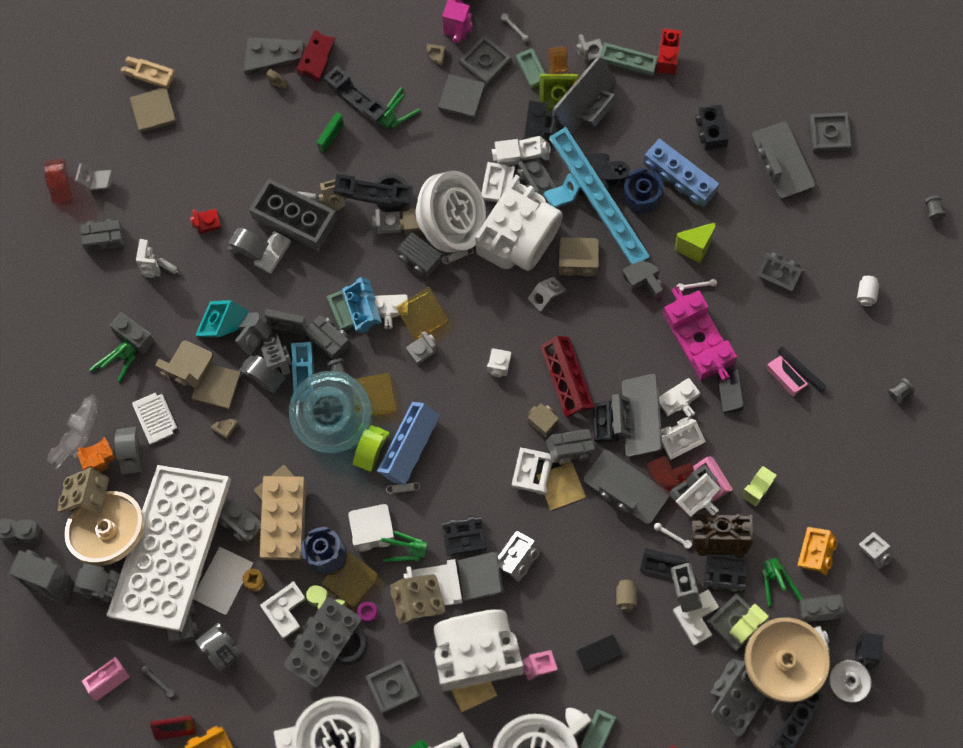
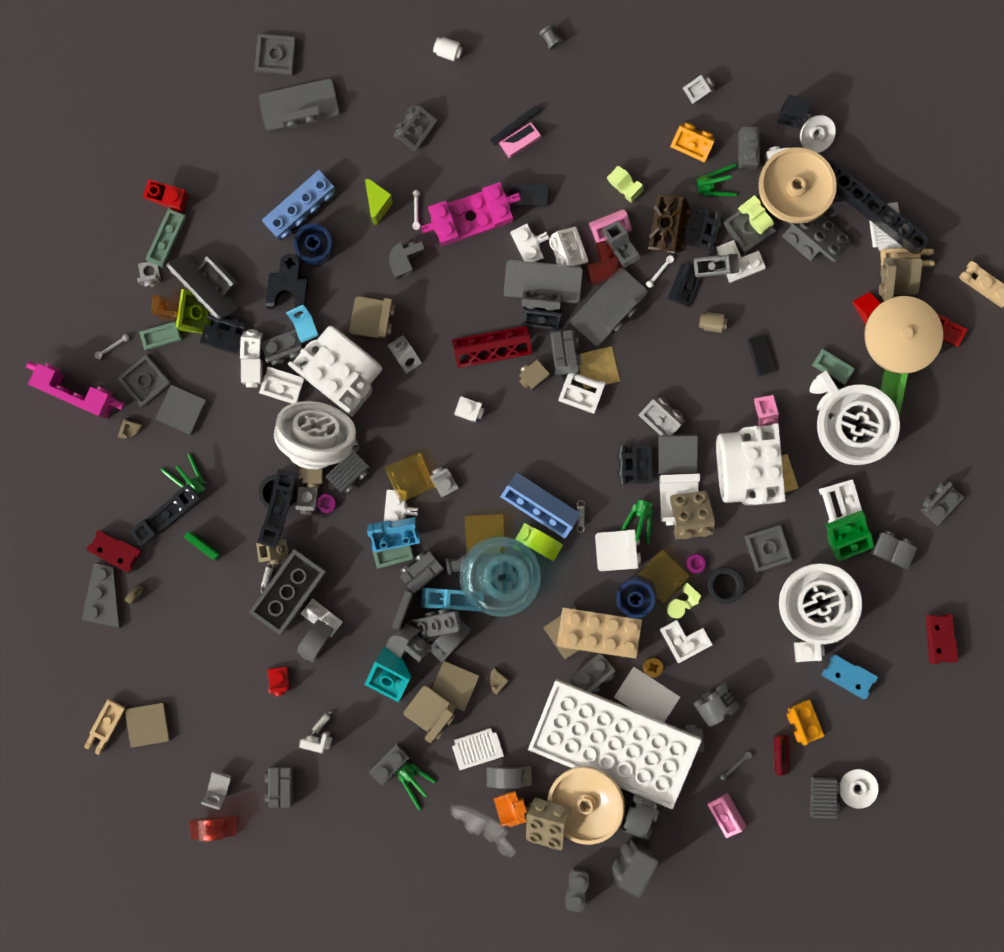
camera: 90 degrees left, 15 degrees up
(322, 641) = (722, 608): dark grey bracket -> none
(386, 241) = (326, 503): none -> magenta tile
(598, 196) = (316, 288): medium azure plate -> none
(699, 496) = (635, 238): white plate -> none
(715, 127) = (255, 161): black brick -> none

